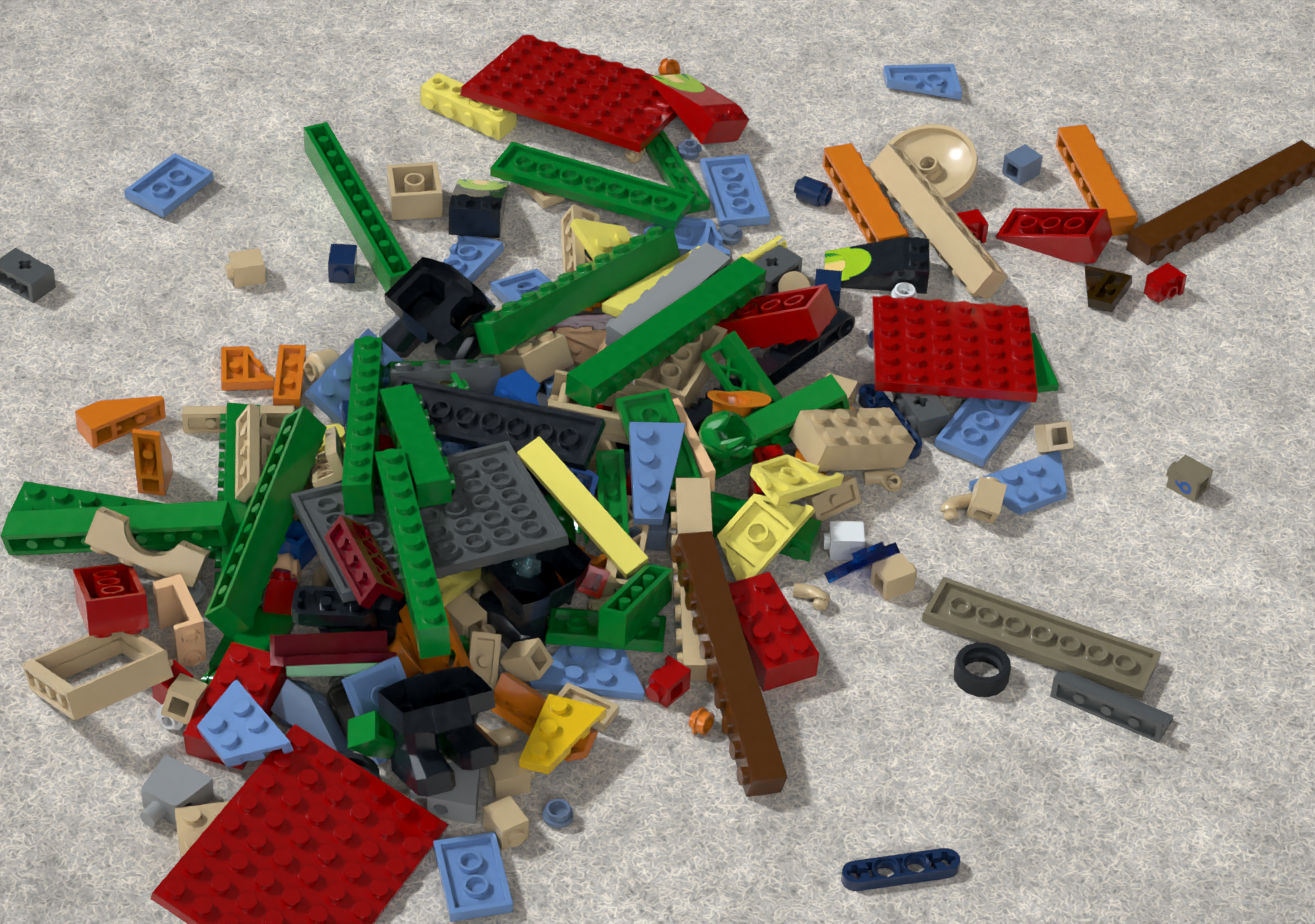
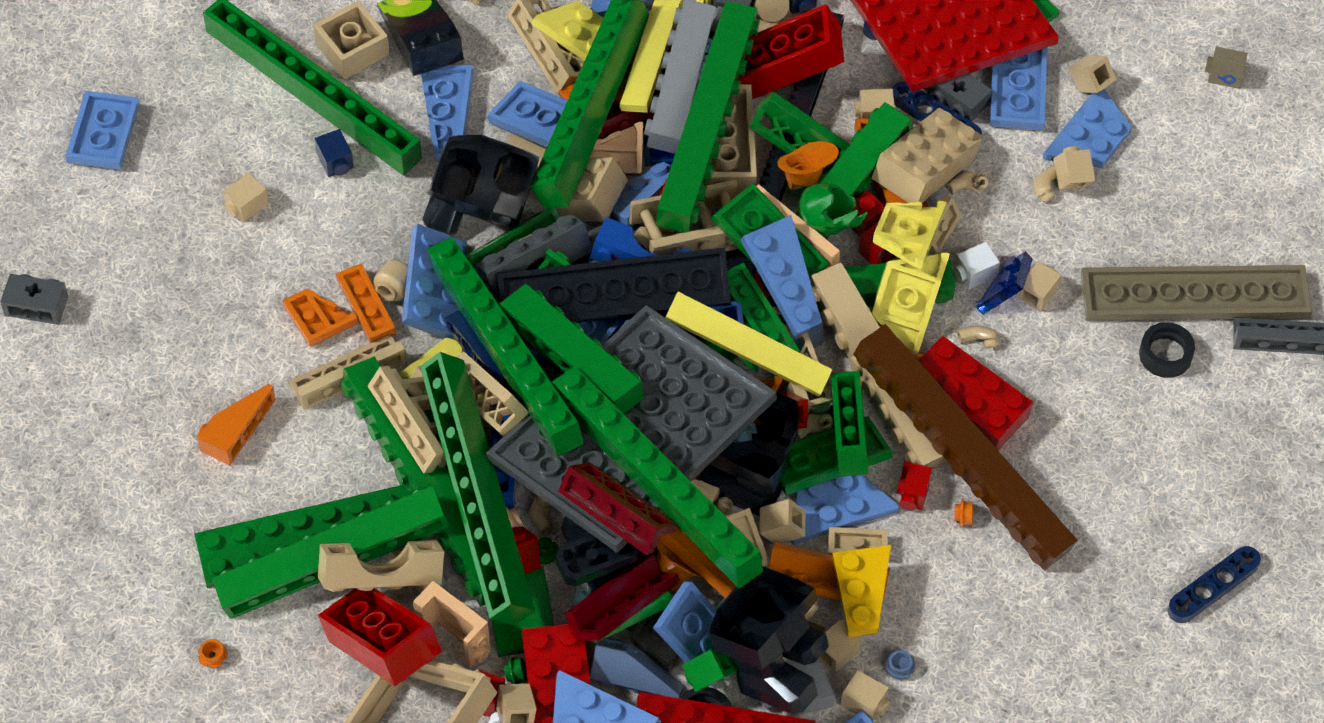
camera: 25 degrees left, 15 degrees up
(152, 462) = (314, 467): orange slope -> none

